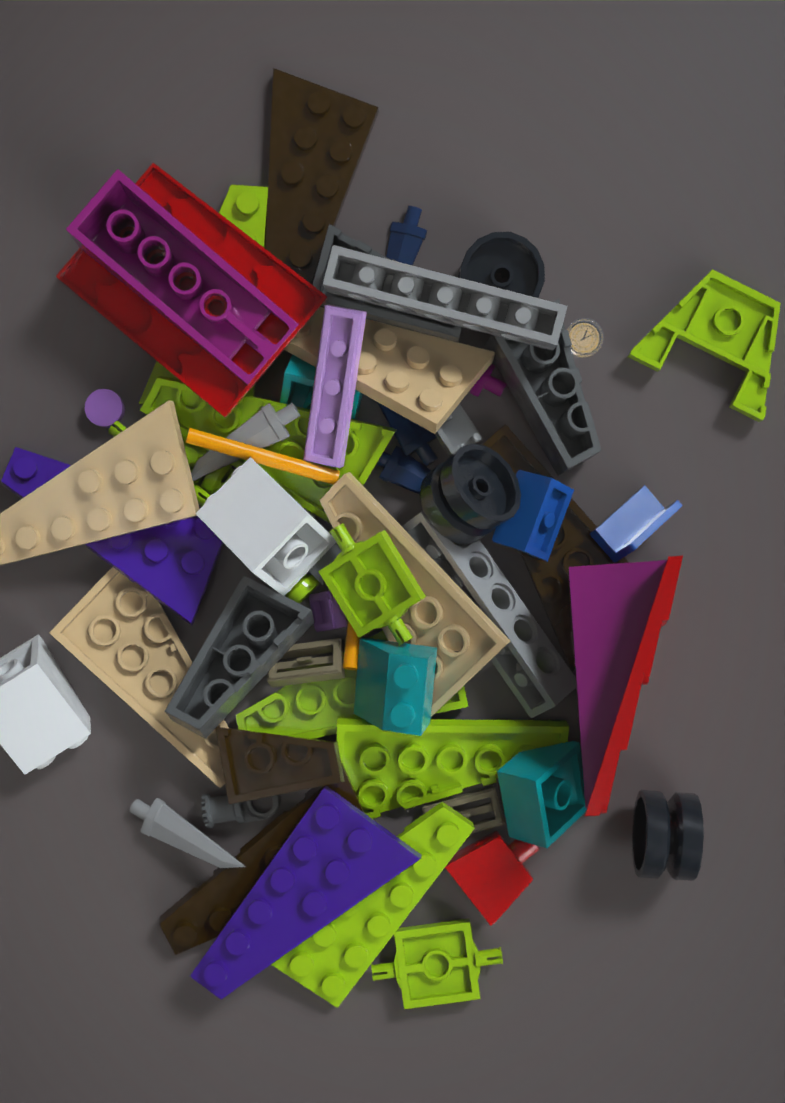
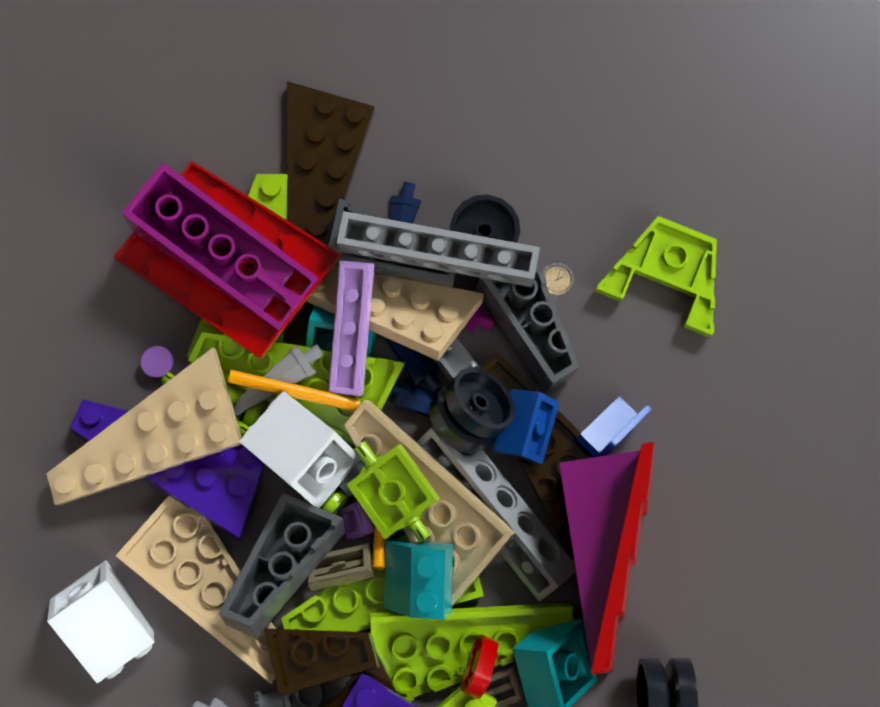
camera: 10 degrees left, 10 degrees down
(458, 789) = (479, 666): none -> red beam

